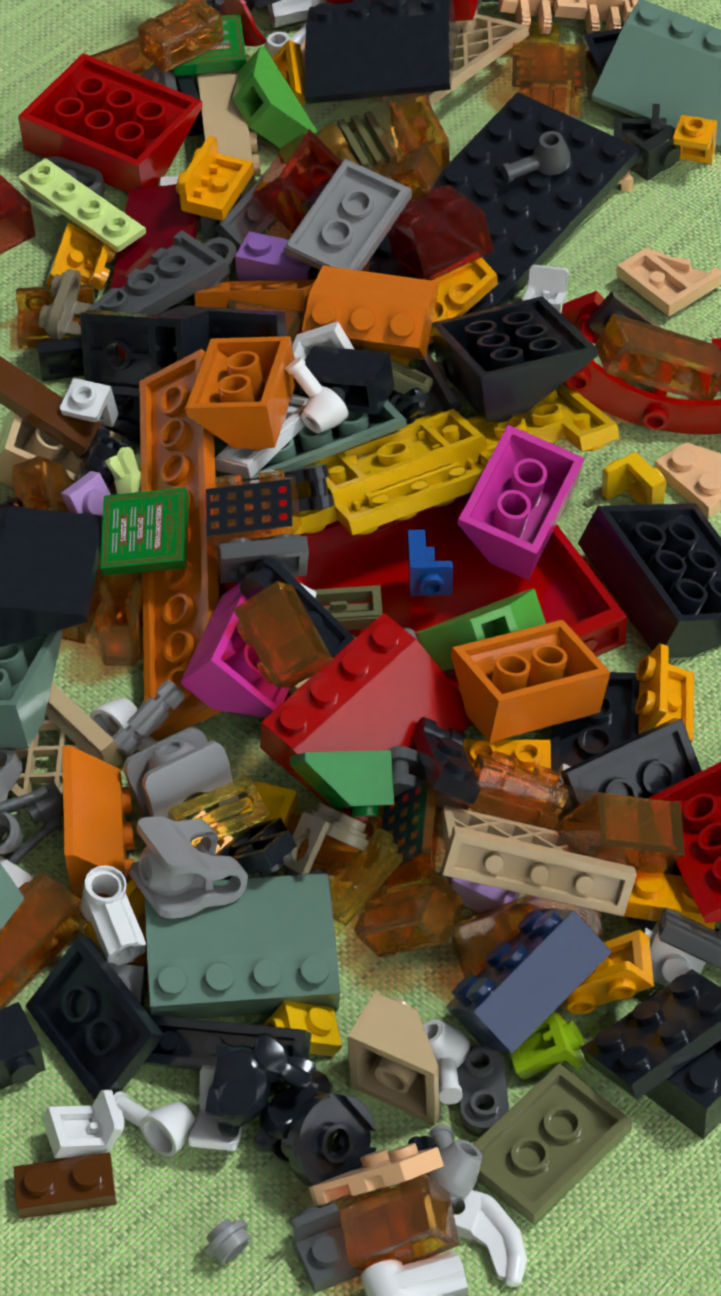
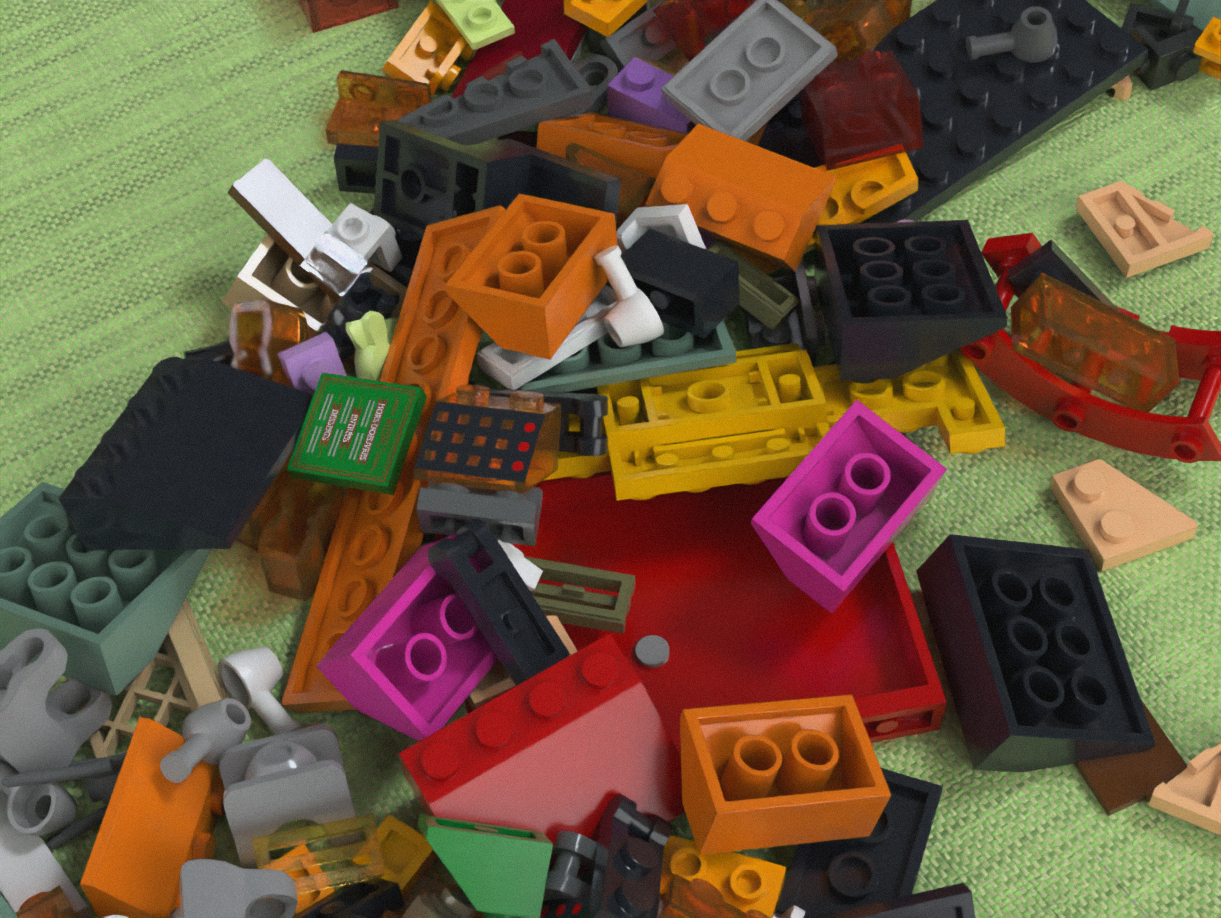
camera: 15 degrees right, 5 degrees up
(59, 316) = (385, 102): dark tan bracket -> none
(77, 423) = (333, 263): none -> clear tile
(112, 751) = (206, 736): none -> light grey bar
(148, 717) = (284, 687): light grey axle -> none
(282, 636) = (457, 640): clear orange brick -> none
(410, 403) = (750, 331): black axle -> none
(425, 574) = (694, 574): blue bracket -> none
(495, 619) = (745, 676): bright green slope -> none
(549, 283) = (983, 205): white bracket -> none
(636, 477) = (1018, 490): yellow bracket -> none
(664, 692) = (965, 834): light orange bracket -> none

